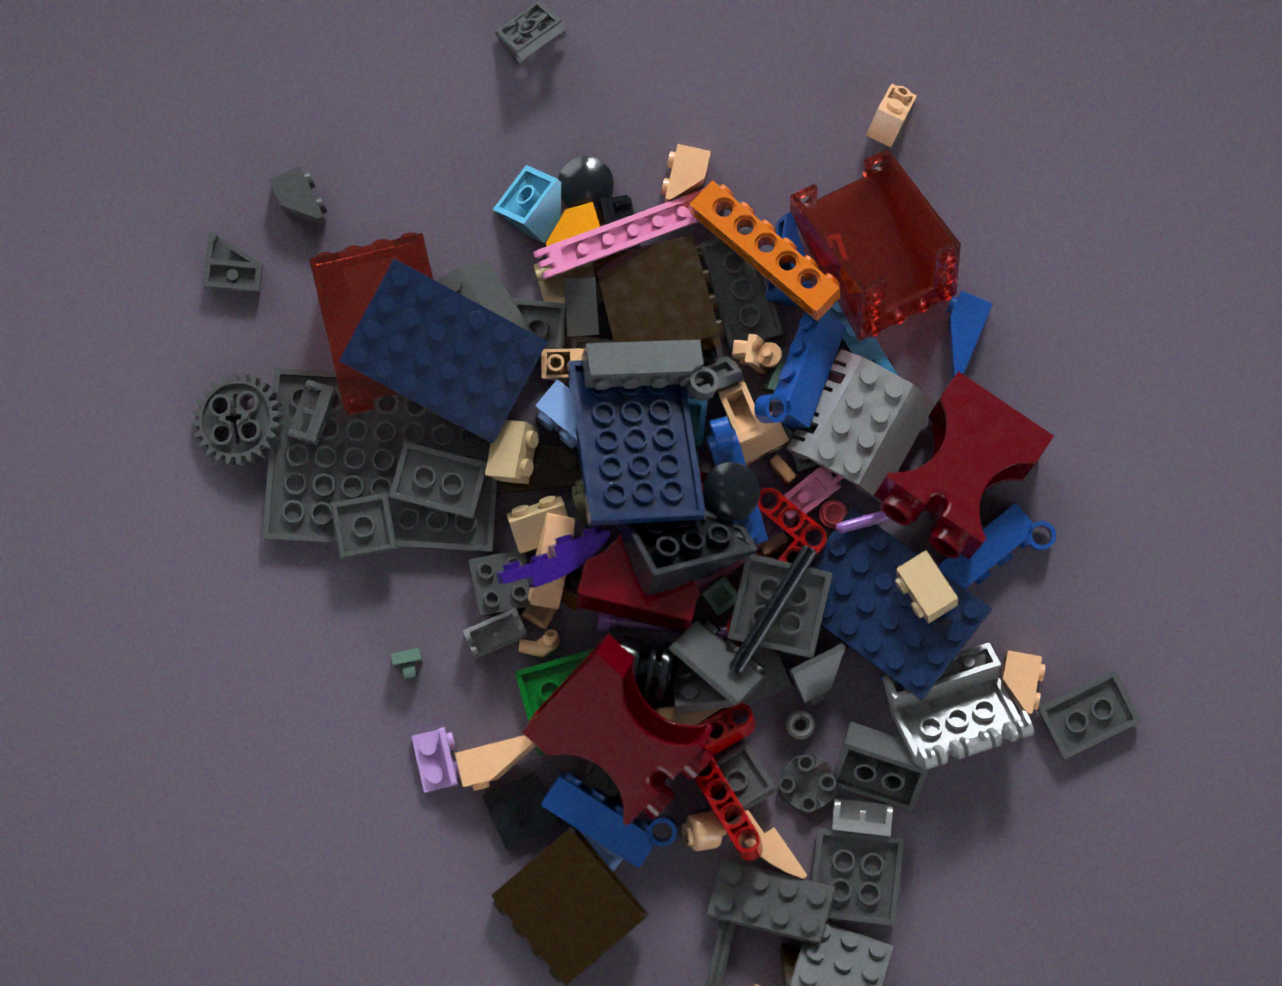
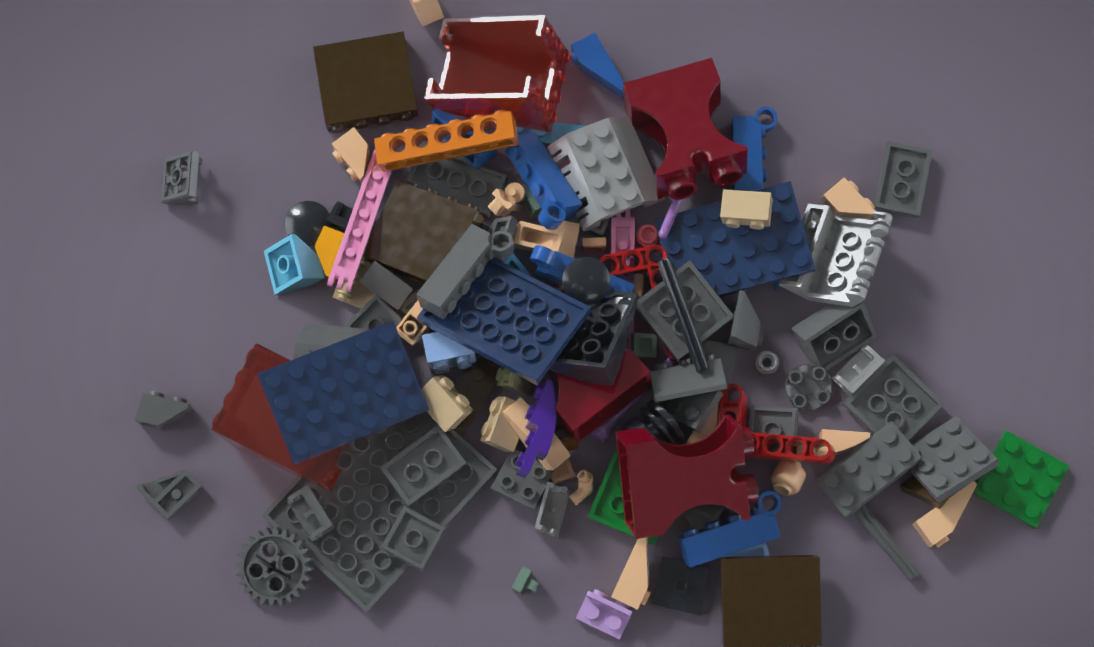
camera: 45 degrees left, 5 degrees down
(766, 126) = (365, 82): none -> dark brown brick

